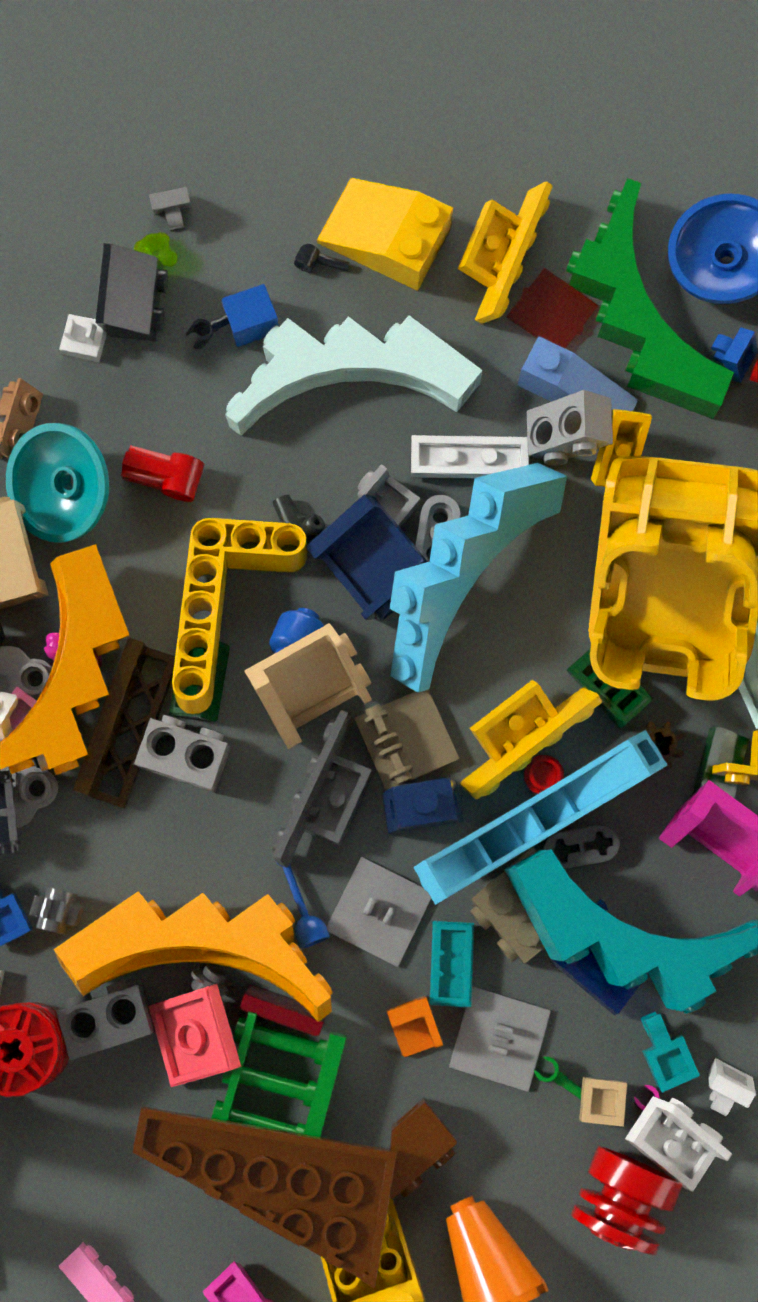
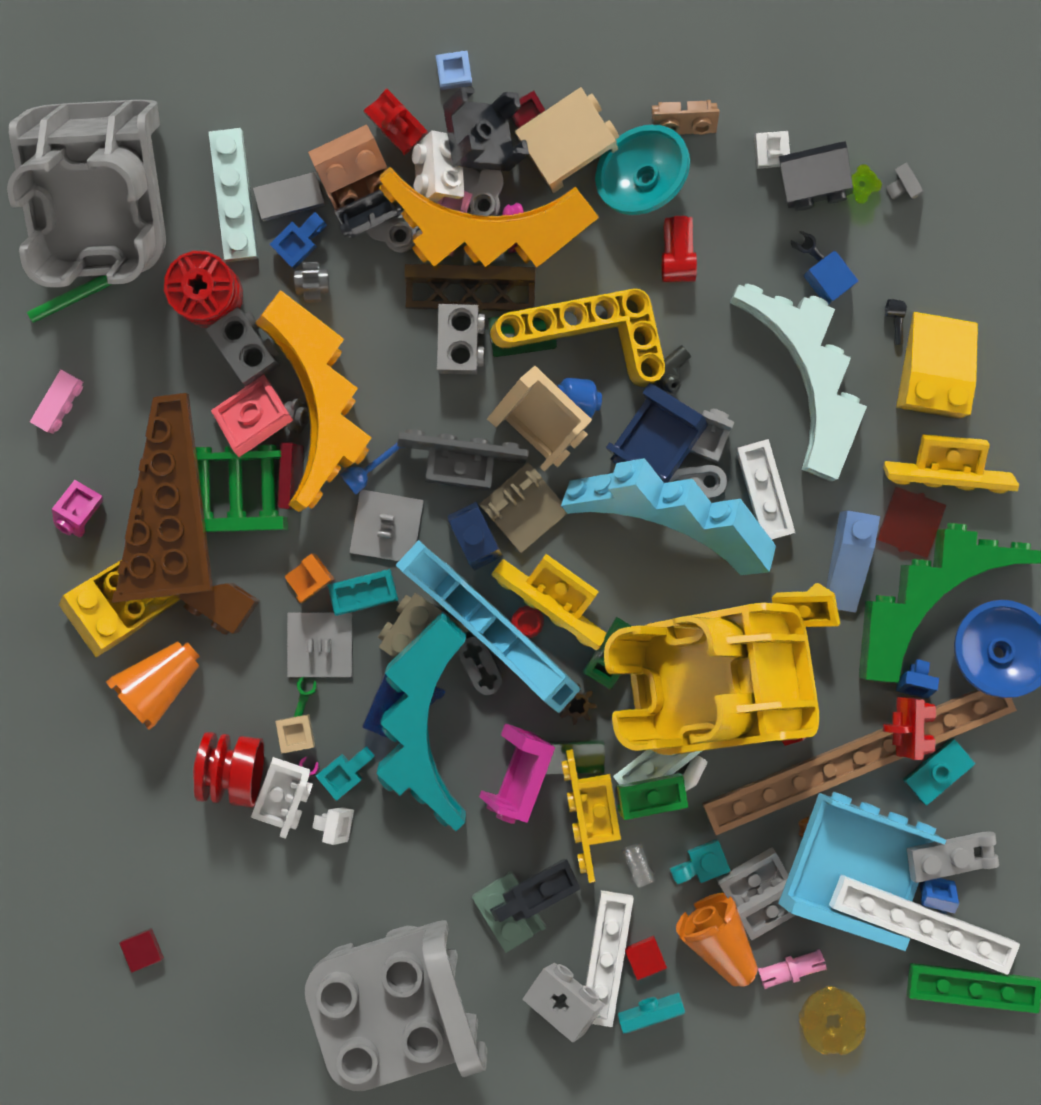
camera: 80 degrees right, 10 degrees up
(569, 427) = (810, 563): light grey brick -> none

